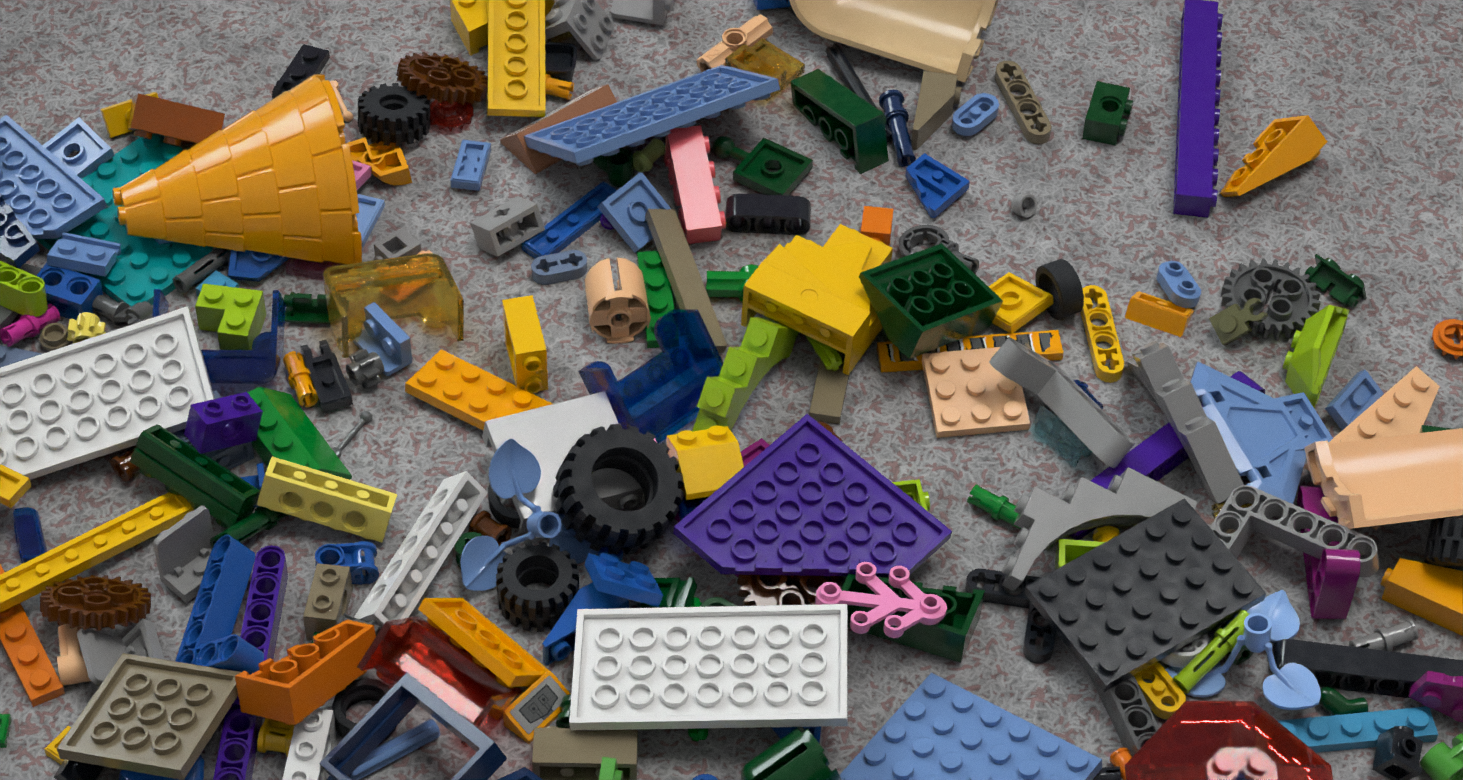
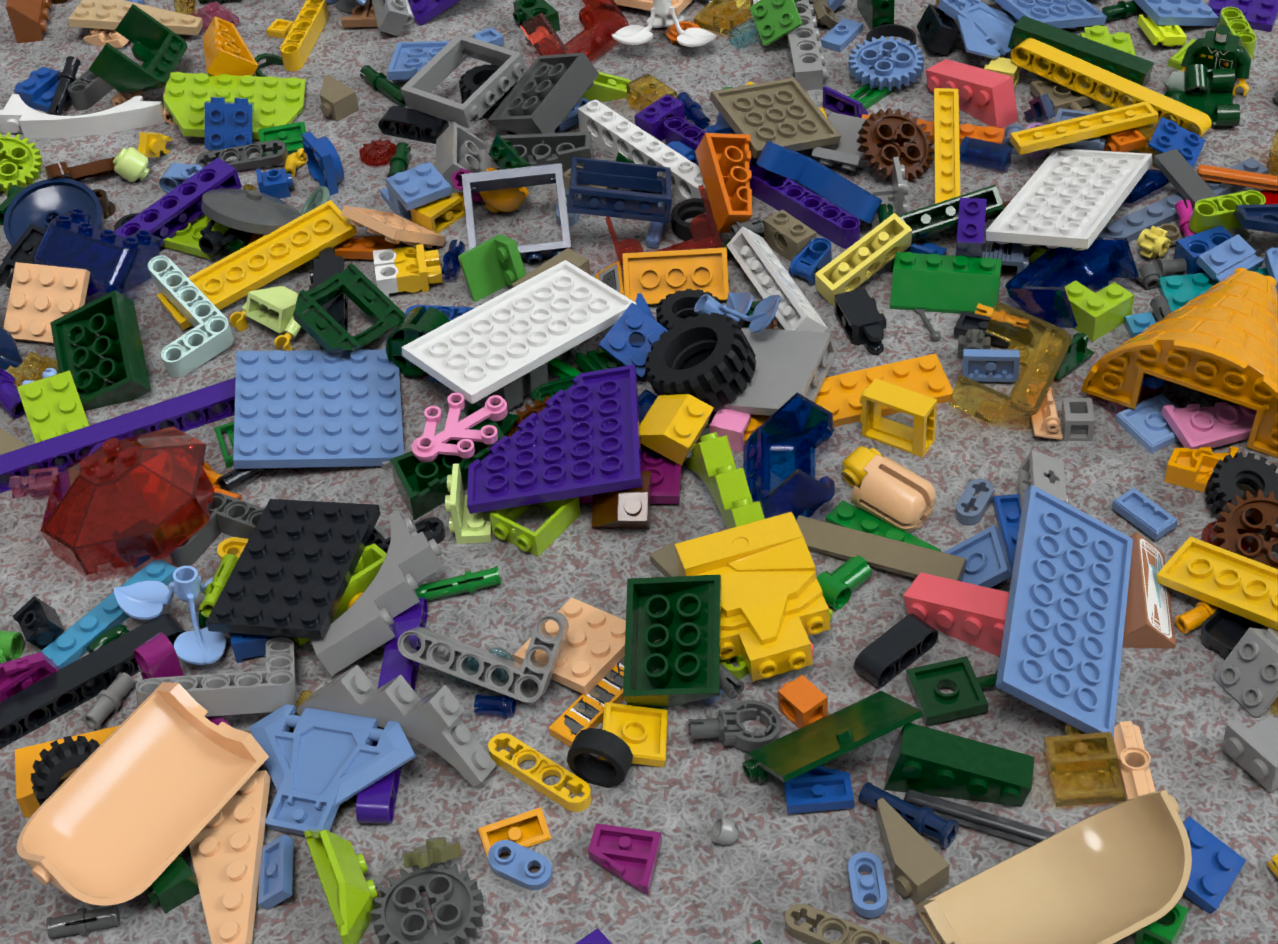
camera: 140 degrees right, 5 degrees down
(24, 730) = (842, 104): none -> dark purple slope
(404, 467) = (860, 319): none -> black hinge
(599, 345) = (855, 463): none -> yellow head
(918, 182) = (829, 737): none -> dark green door
(946, 561) = (466, 526): none -> yellowish green bracket
(1100, 238) = (626, 853): none -> magenta wing

